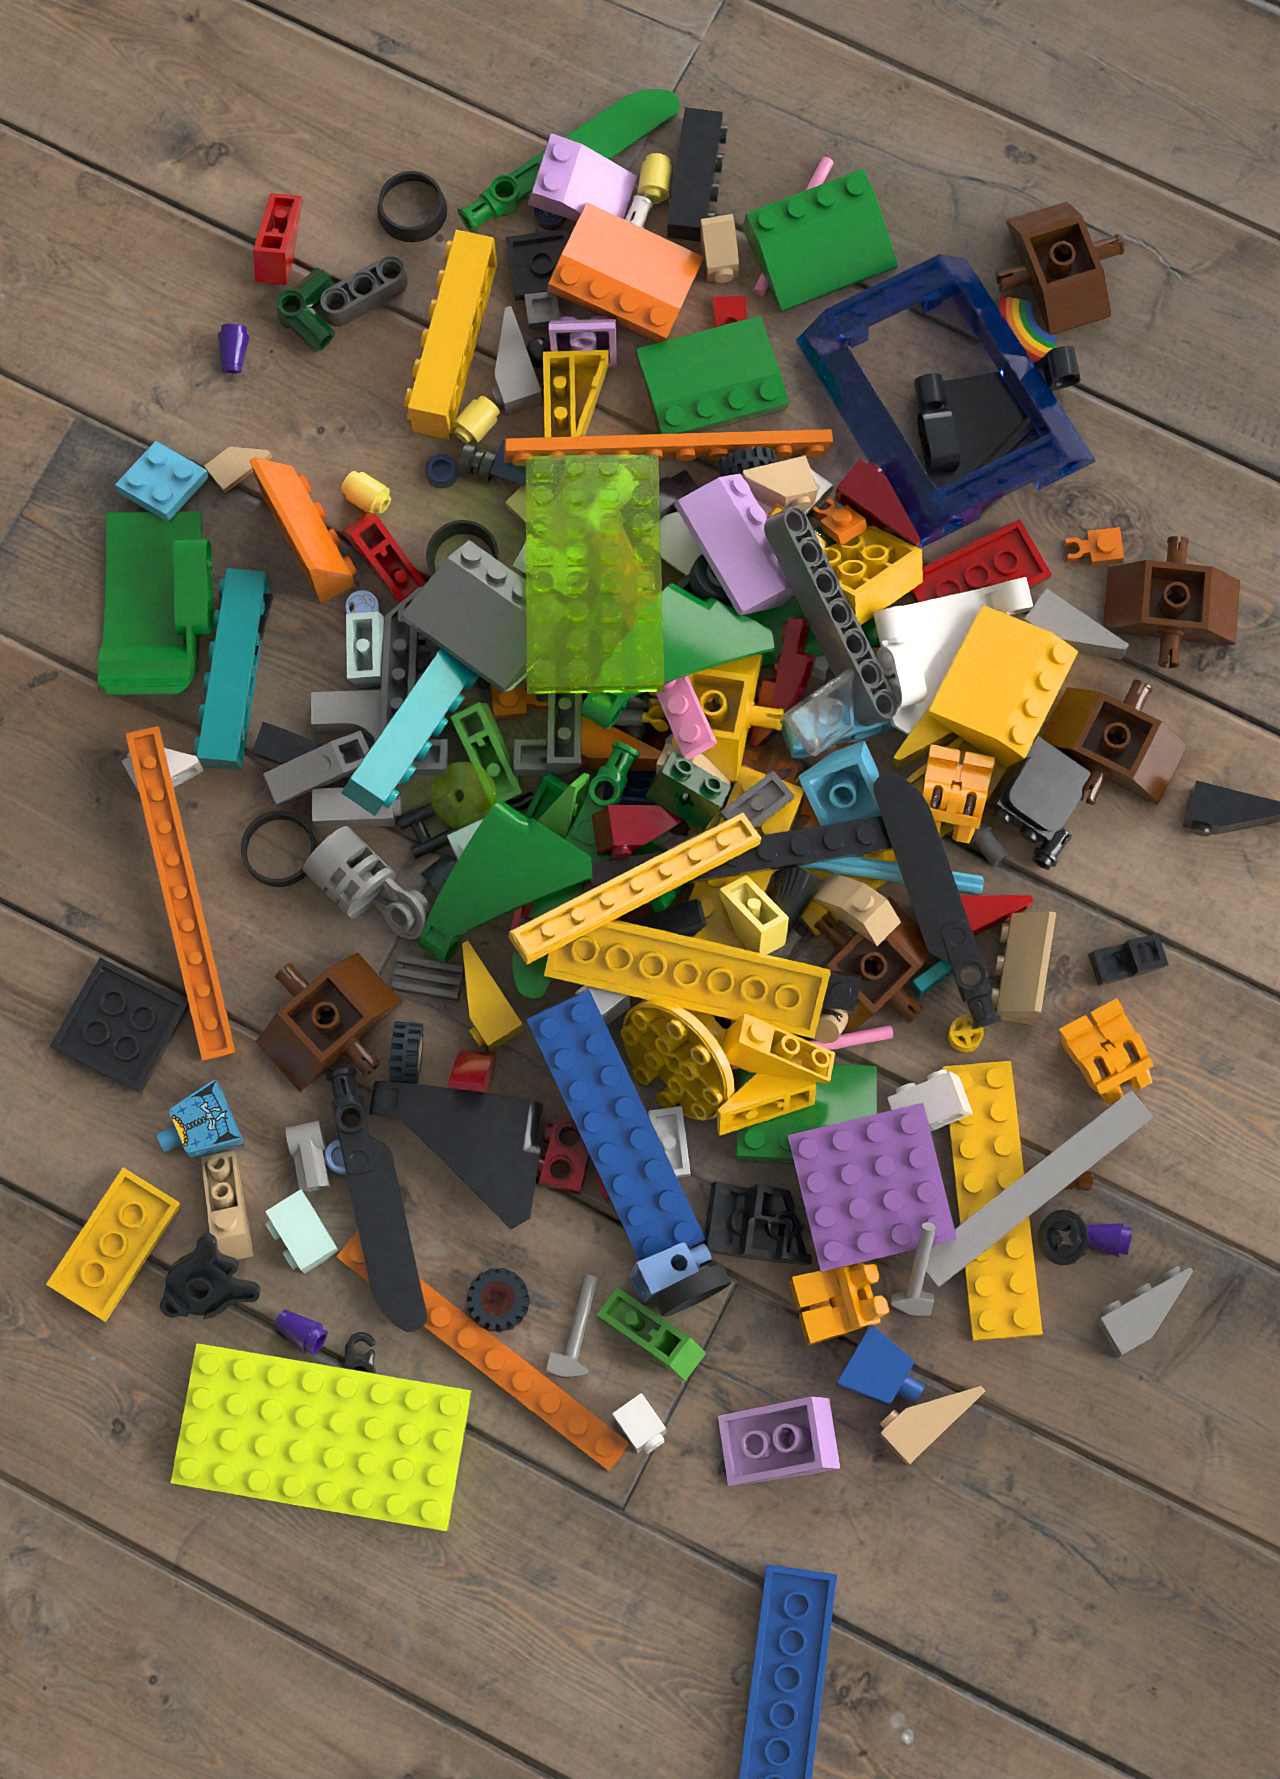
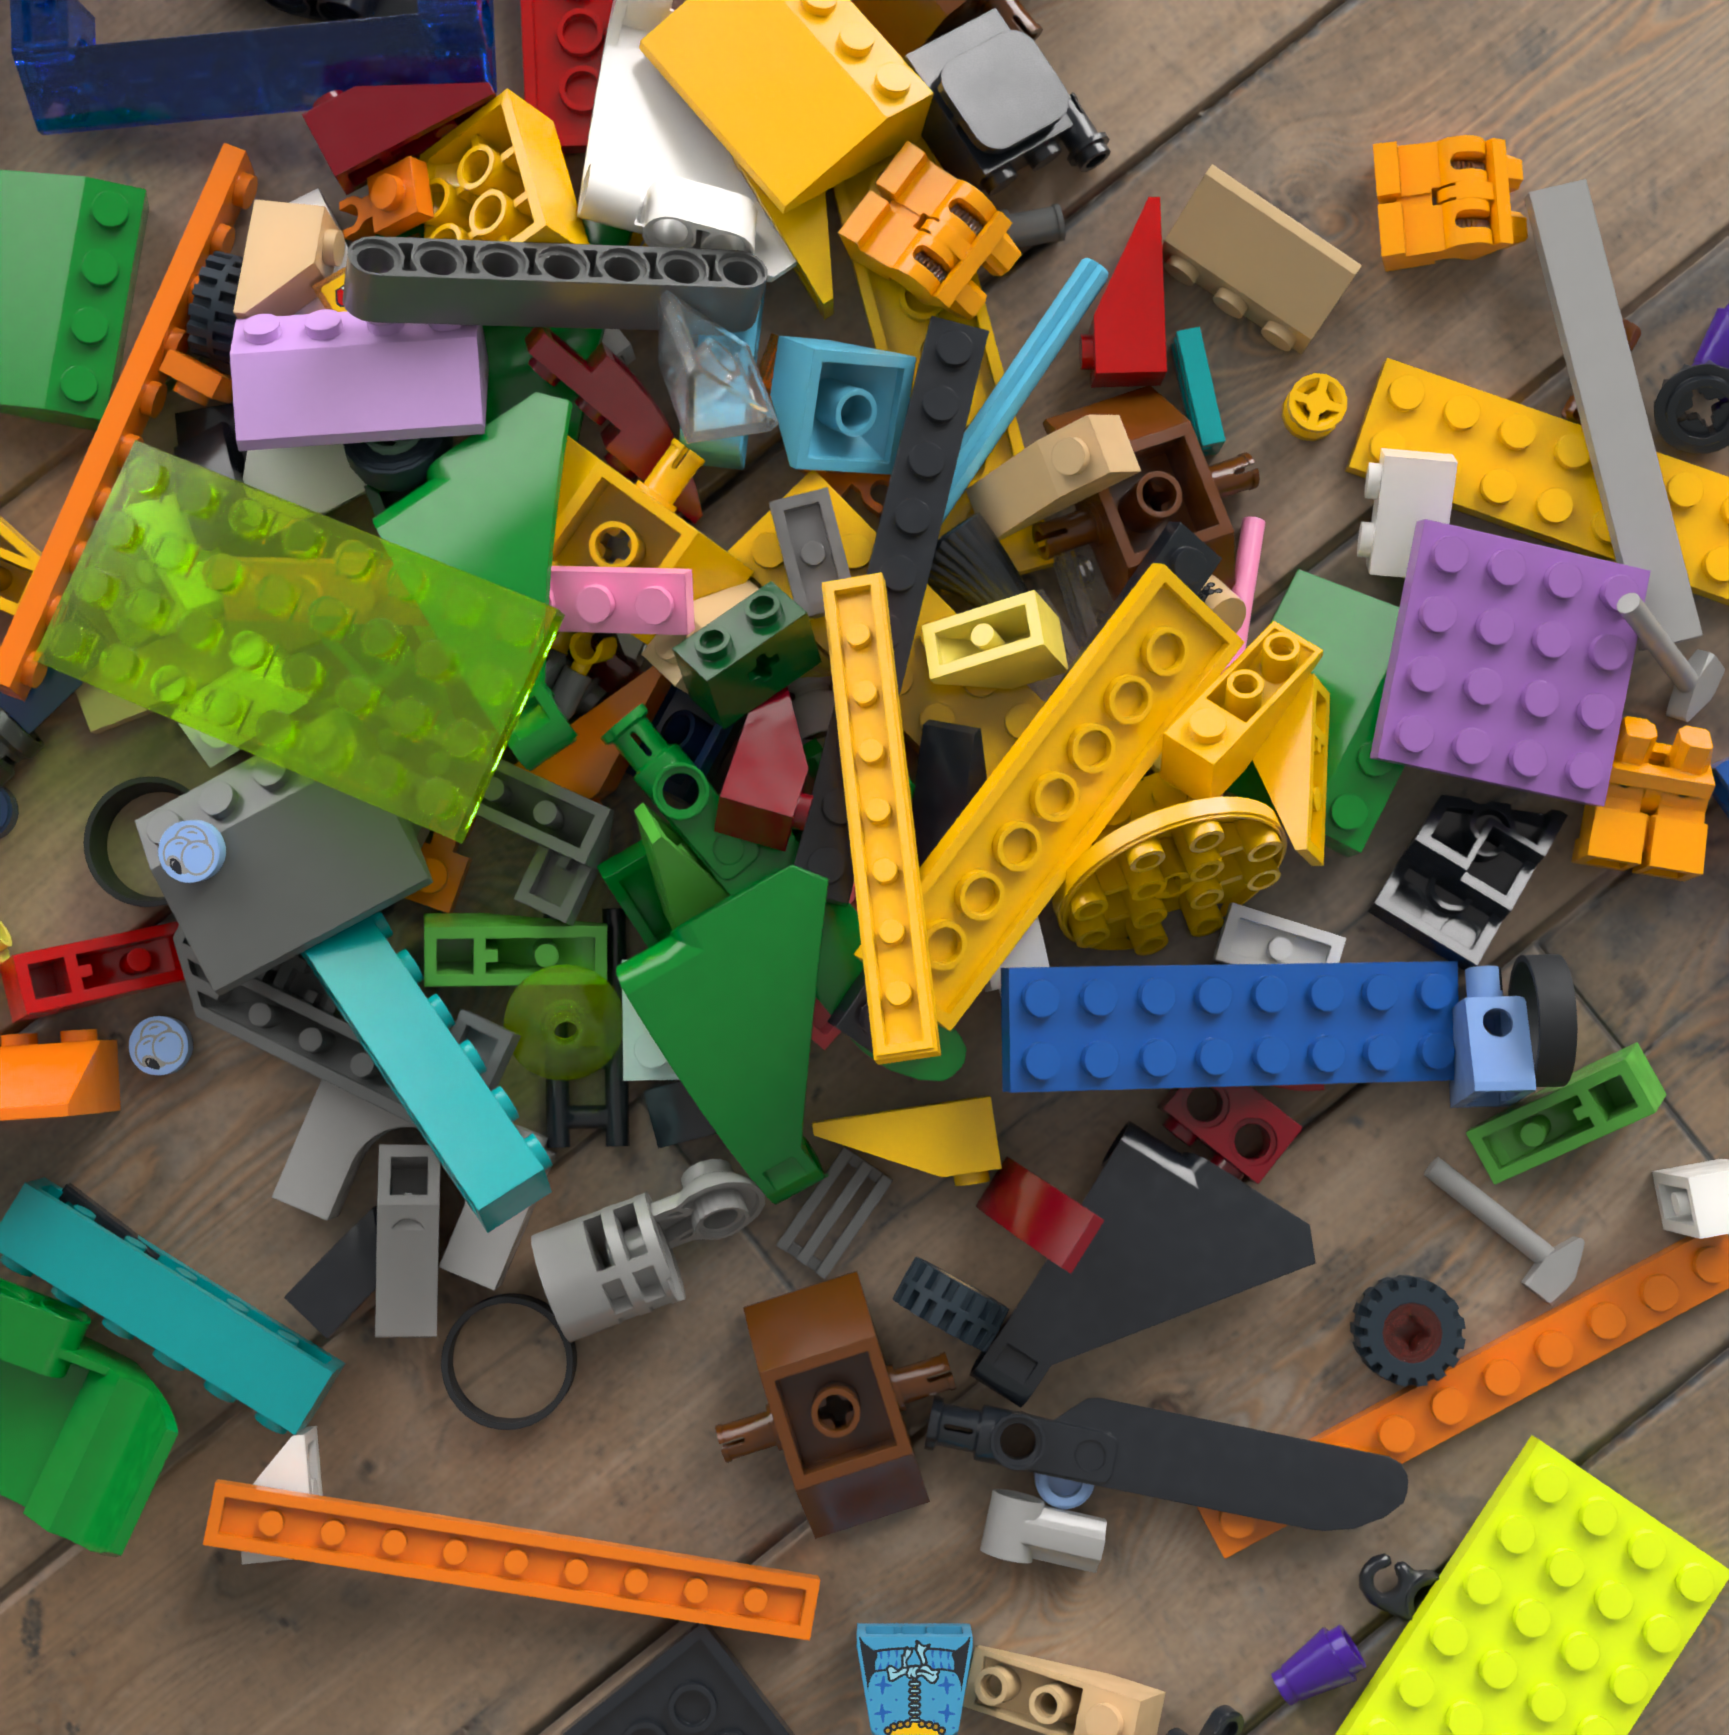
camera: 70 degrees left, 10 degrees up
(301, 1232) = (1163, 1598): light aqua brick -> none
(364, 648) = (237, 1074): light aqua brick -> none
(465, 571) = (192, 851): none -> light blue tile
(705, 468) = (197, 379): none -> orange plate
(774, 760) = (741, 501): clear orange slope -> none
(933, 889) = (1079, 341): black piece -> none
(1128, 959) = (1307, 102): black slope -> none

